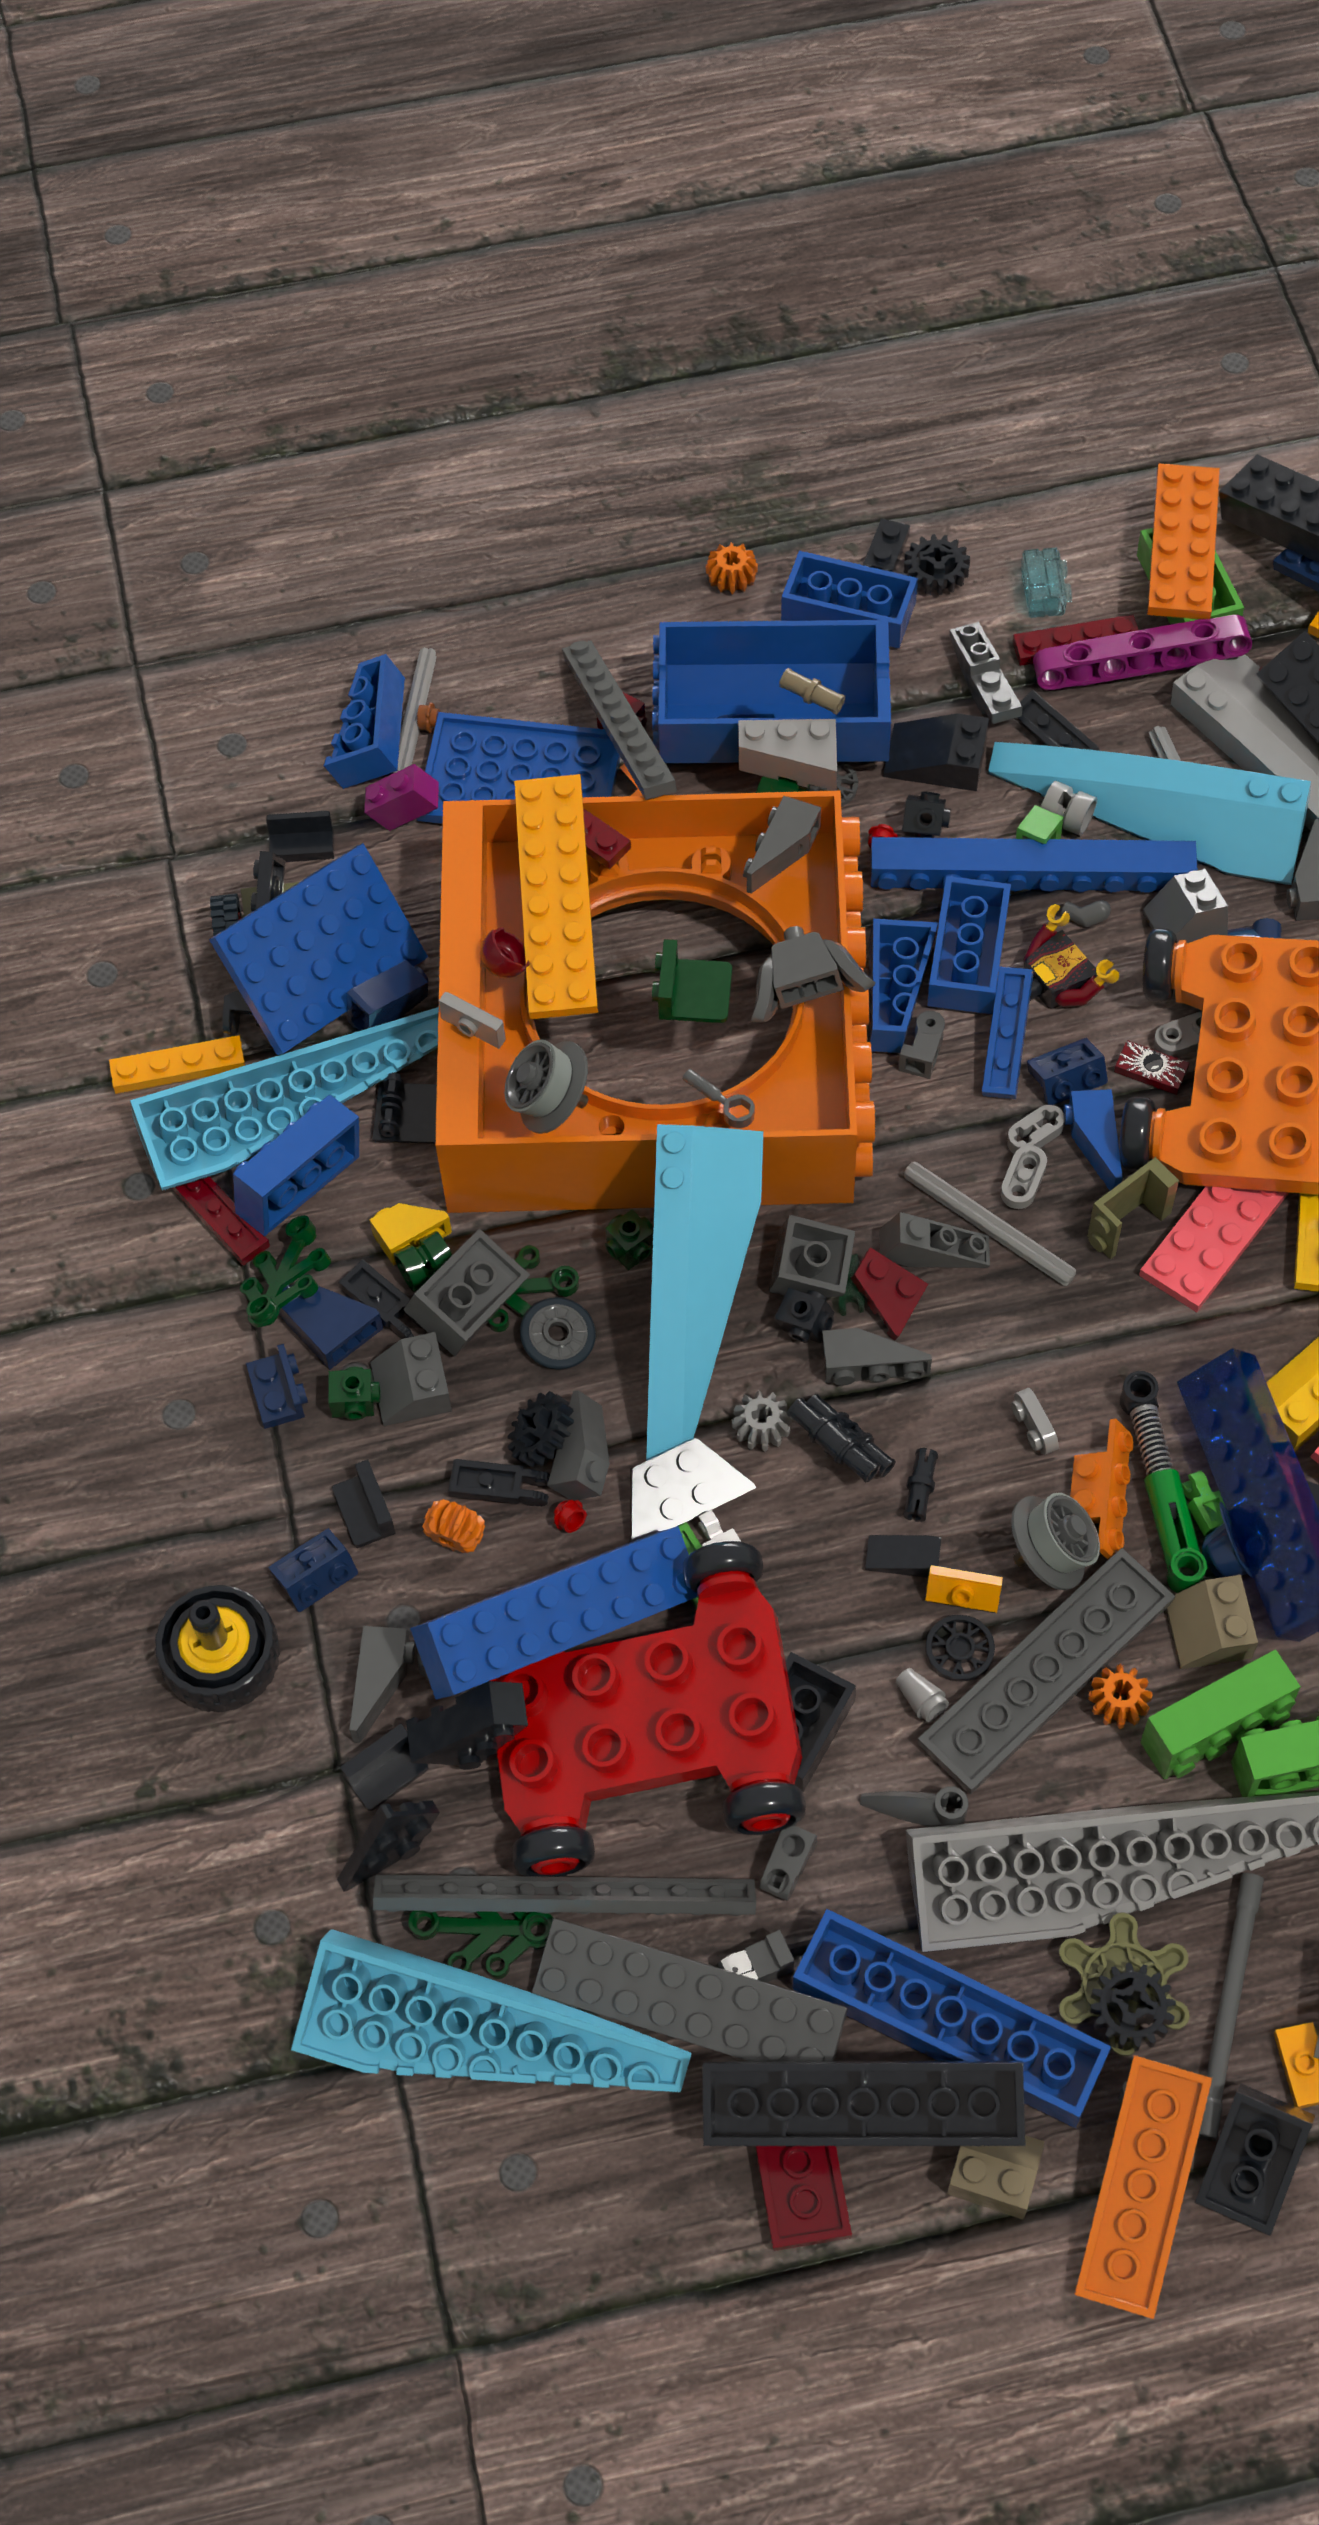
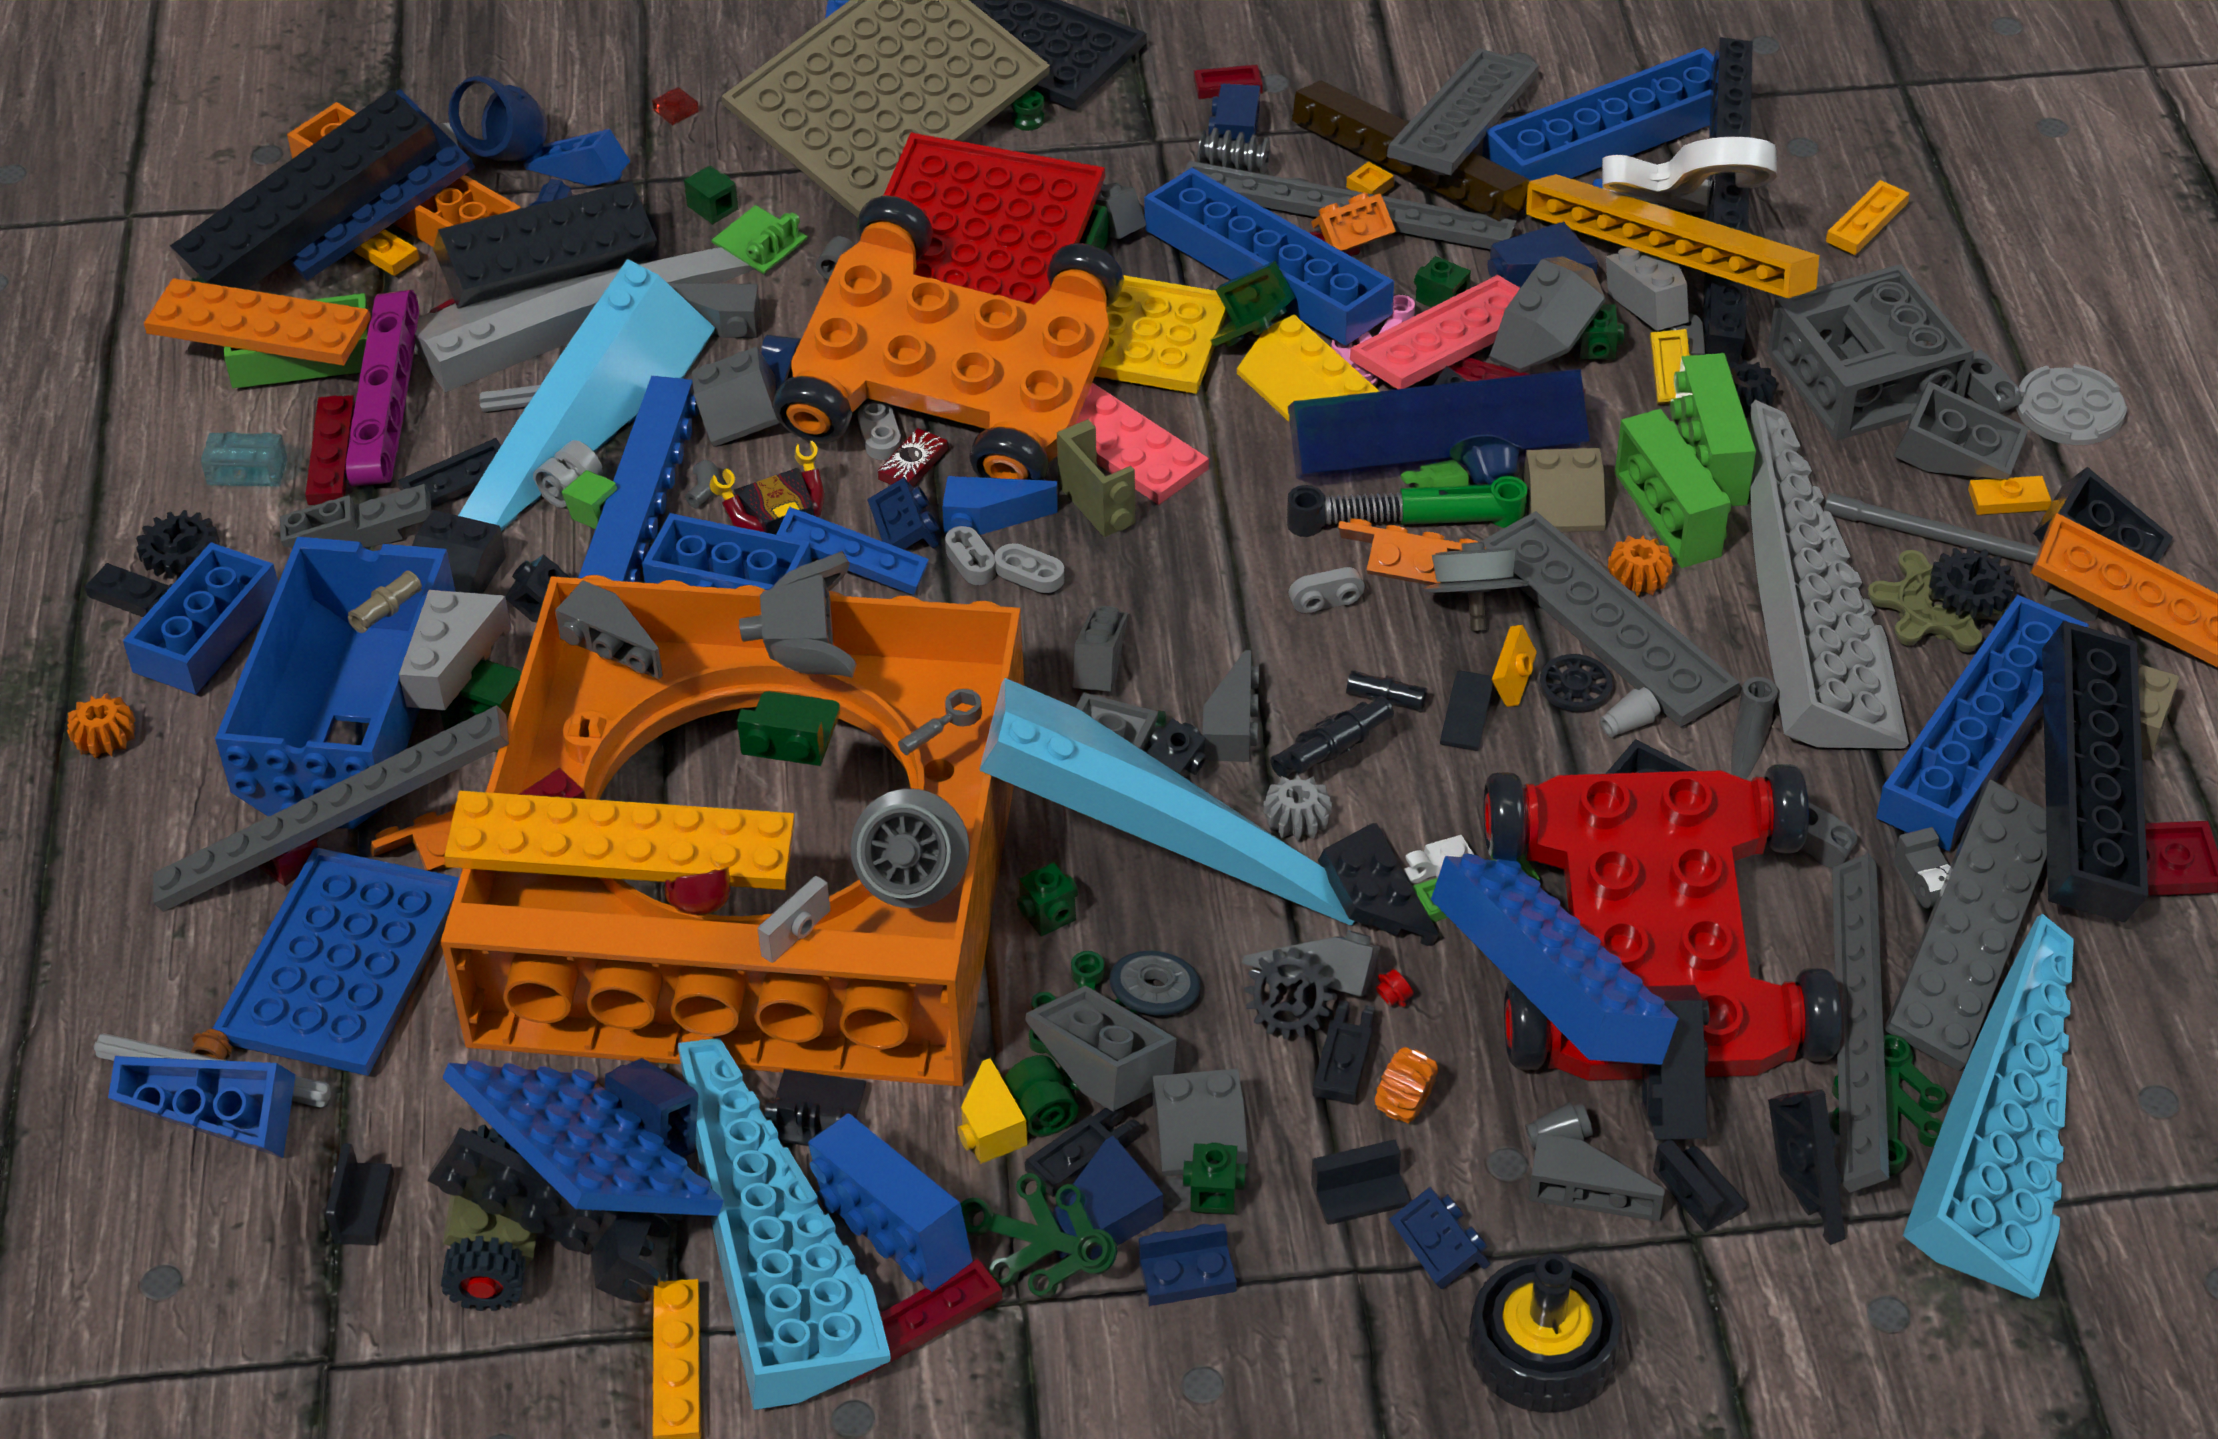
camera: 85 degrees left, 15 degrees down
(401, 797) = (346, 1066): magenta brick -> none
(888, 1290) = (1153, 686): dark red wing -> none
(990, 1223) = (1090, 595): light grey axle -> none

